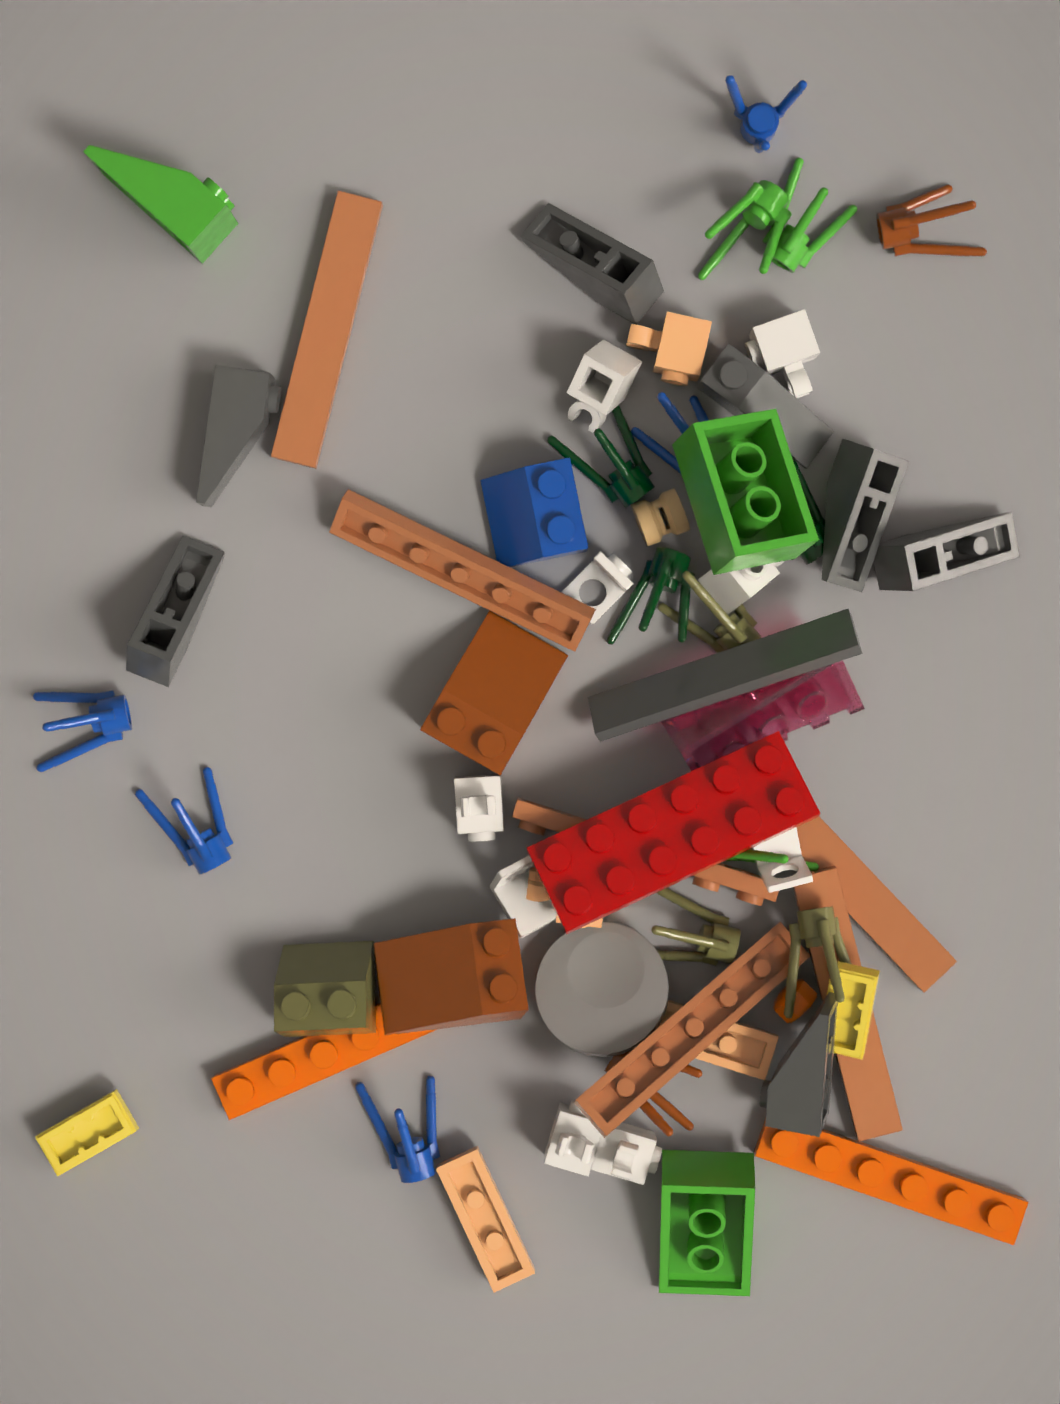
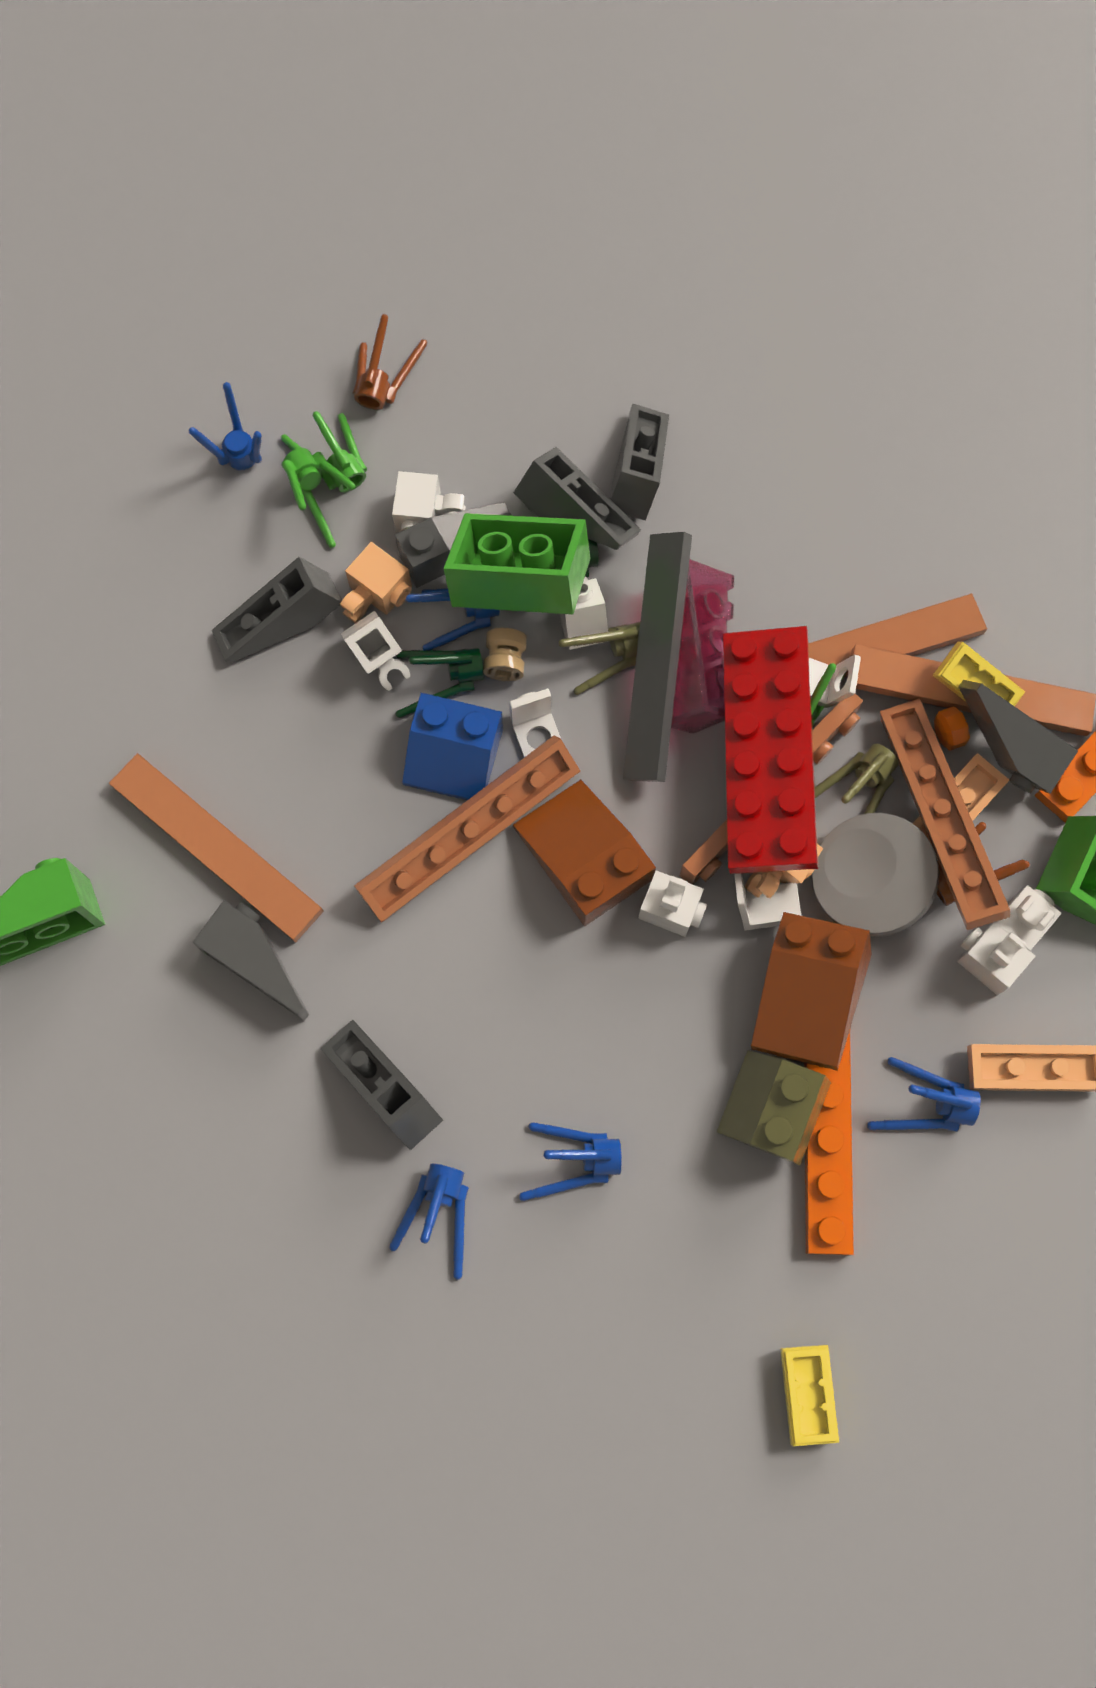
camera: 65 degrees left, 15 degrees down
(665, 575) = (554, 671): dark green plant -> none
(818, 929) = (902, 674): olive plant -> none

